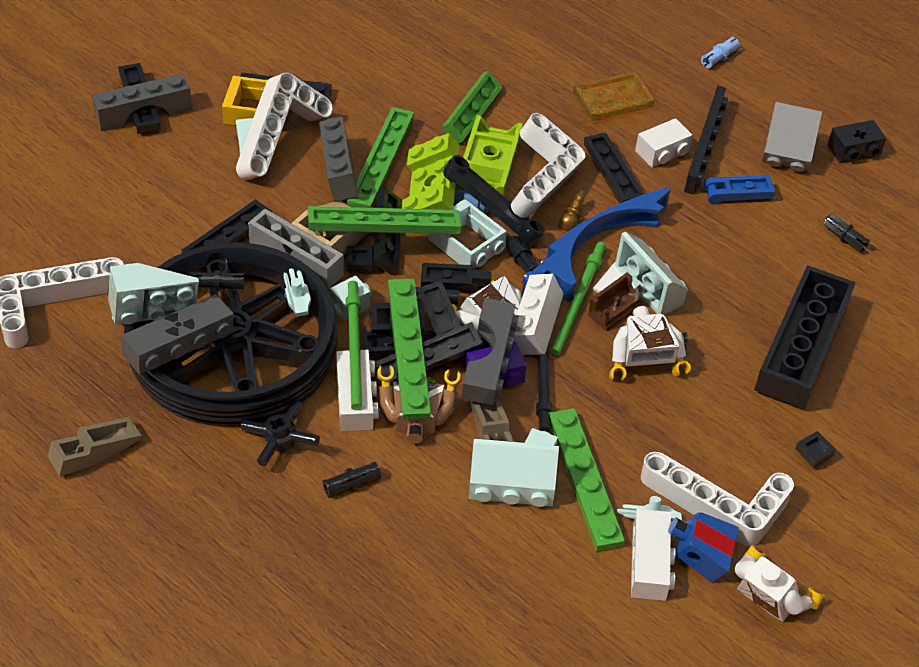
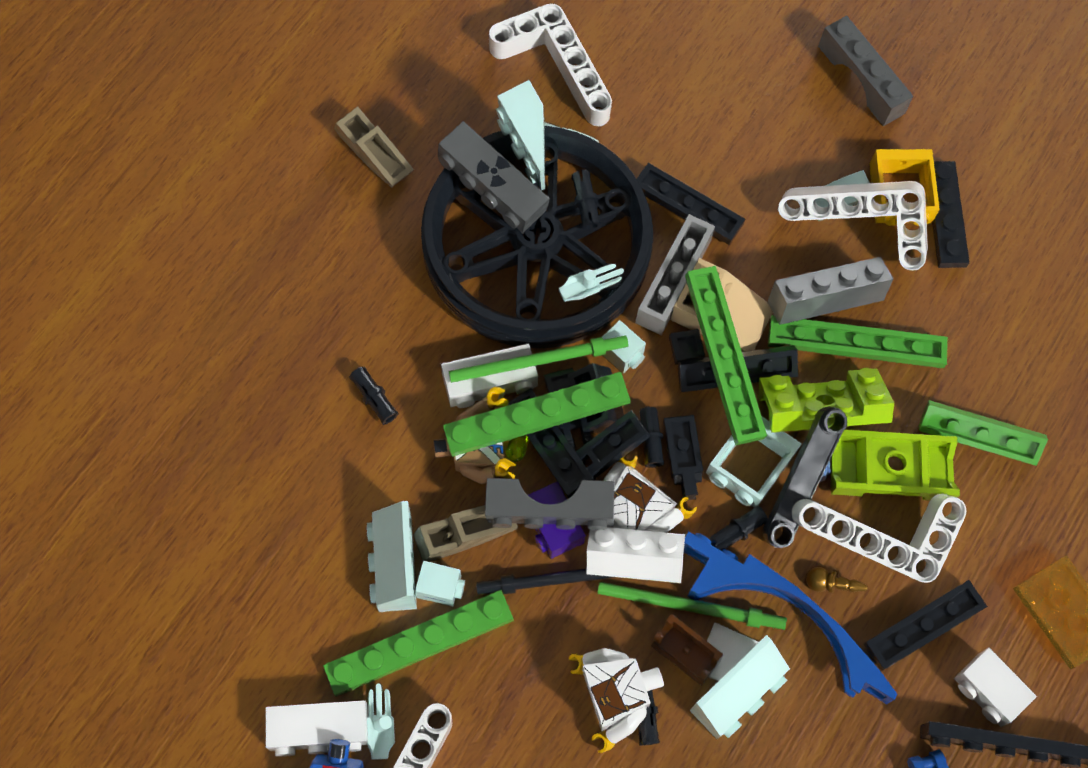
camera: 80 degrees right, 20 degrees up
(146, 117) = (898, 55): black plate -> none
(280, 433) = (415, 313): black bar -> none

